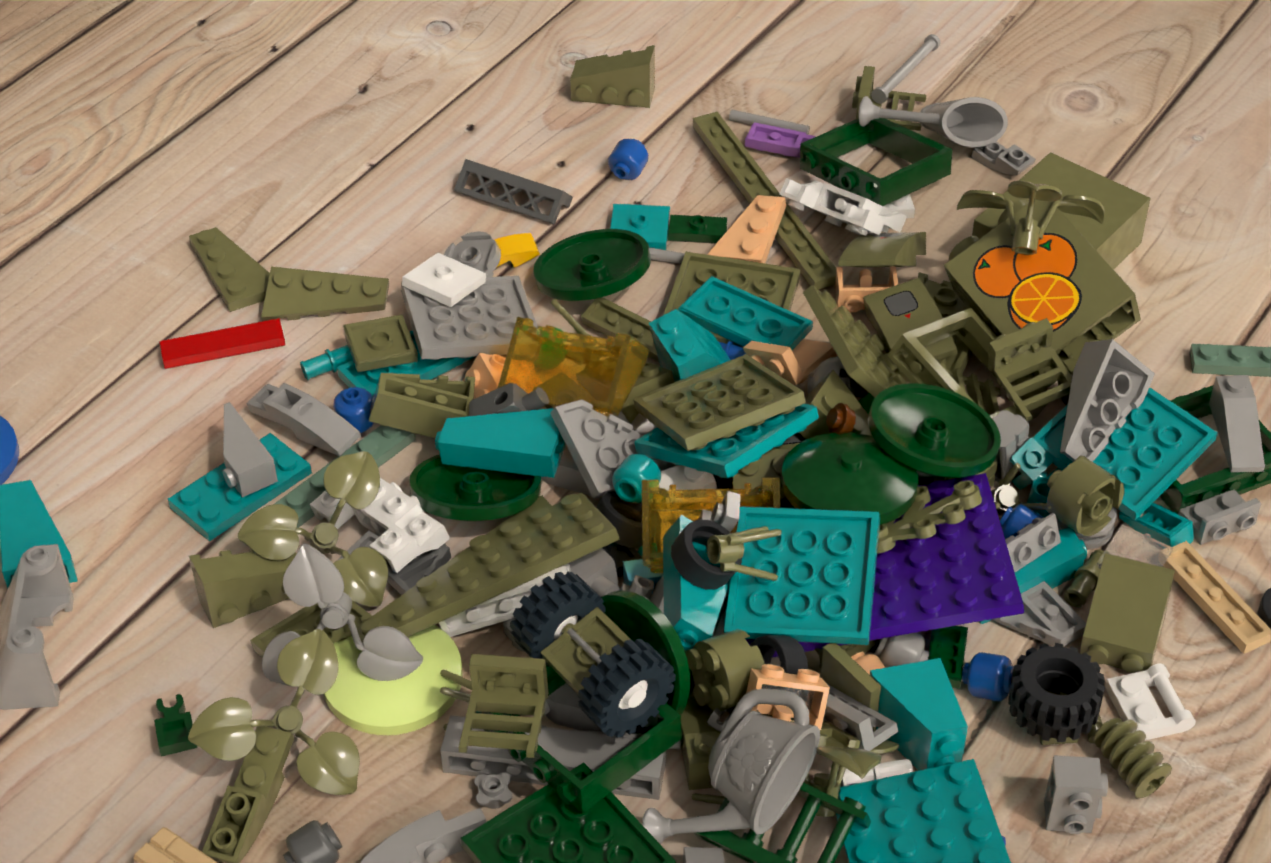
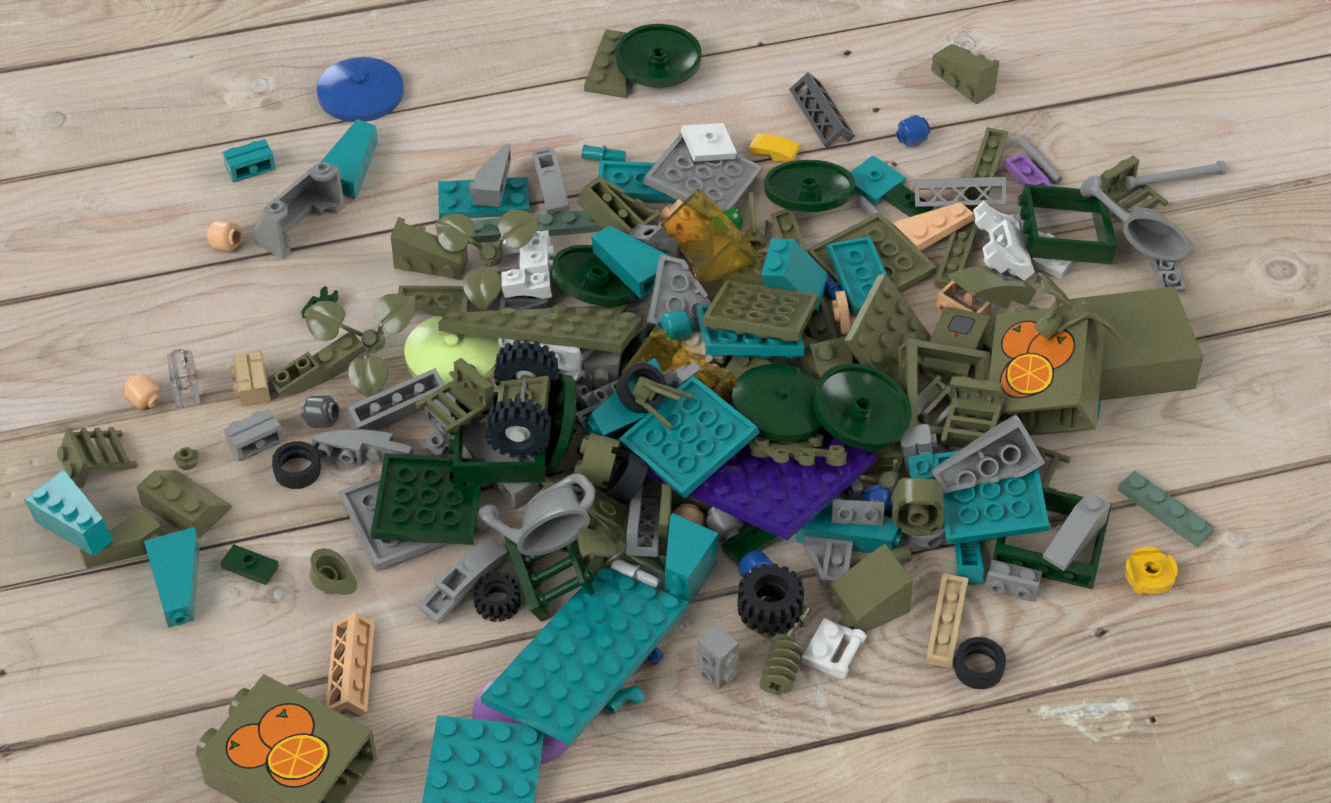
camera: 40 degrees right, 5 degrees up
(222, 343) = (558, 107): red tile -> none
(284, 227) = (658, 55): none -> dark green dish
(308, 292) = (634, 105): olive wing -> none
(315, 579) = (427, 269): light grey plant -> none
(354, 407) = (575, 187): blue head -> none
(380, 343) = (633, 158): olive tile -> none
(401, 772) = (394, 402): none -> light grey brick
(478, 244) = (748, 138): light grey plate -> none
(737, 179) = (960, 183): none -> light grey fence
(804, 684) = (609, 492): light nougat window -> none
(841, 419) = (815, 365): reddish brown plate -> none
(1138, 547) = (923, 563): clear piece -> none

